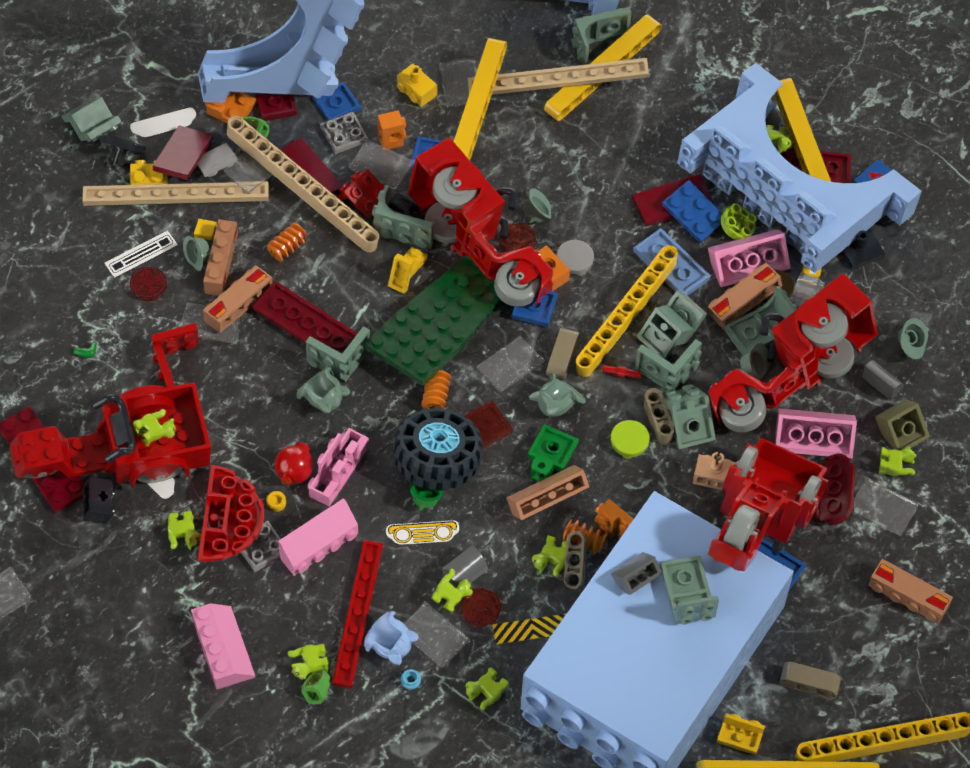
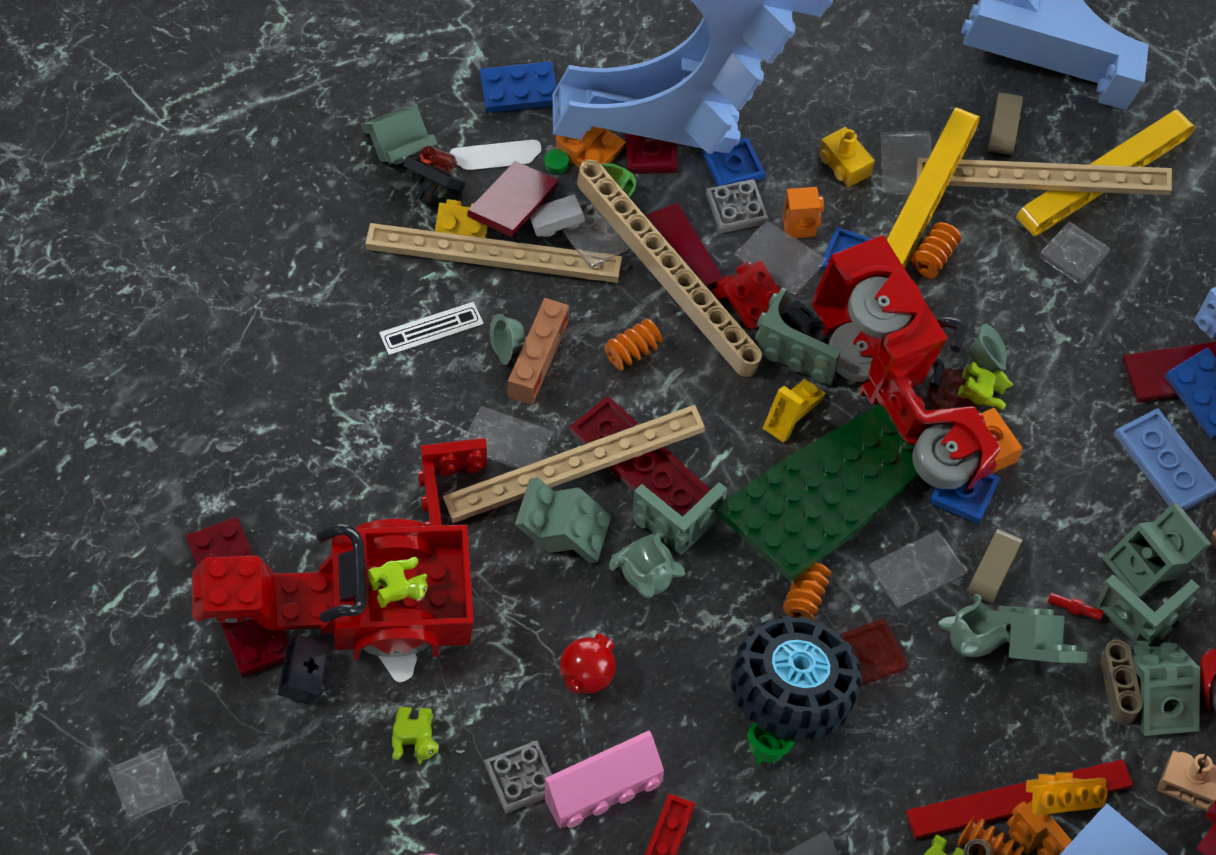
camera: 10 degrees right, 0 degrees up
(86, 353) = (328, 454): green animal -> none
(123, 132) = (438, 158): none -> clear red cylinder
(148, 283) = (433, 371): clear red tile -> none
(171, 70) = (518, 86): none -> blue plate
(205, 229) = (524, 308): yellow tile -> none
(208, 121) = (556, 161): none -> green tile
(231, 516) = (485, 727): red brick -> none
(237, 299) = (550, 413): nougat brick -> none
(259, 331) = (575, 463): none -> tan plate
(259, 370) = (563, 520): none -> sand green bracket
(276, 501) = (553, 713): yellow tile -> none
(336, 467) = (649, 678): bright pink piece -> none
(422, 532) = (755, 796): sticker -> none
(489, 141) = (935, 249): none -> orange piece
(526, 43) = (1005, 124): none -> dark tan beam
(536, 230) = (982, 384): none -> lime animal
(546, 460) = (951, 720): green plate -> none
(547, 492) = (945, 769): nougat brick -> none
(576, 256) = (1033, 429): light grey tile -> none
(585, 510) = (1000, 802): none -> red tile
(588, 128) = (1074, 252): none -> clear tile
(596, 393) = (1036, 635): none -> sand green bracket
(598, 28) = (1108, 118): sand green bracket -> none
(625, 318) = (1092, 530): yellow beam -> none
(629, 493) = (1065, 794): none -> light orange bracket
(630, 438) = (1074, 708): lime tile -> none

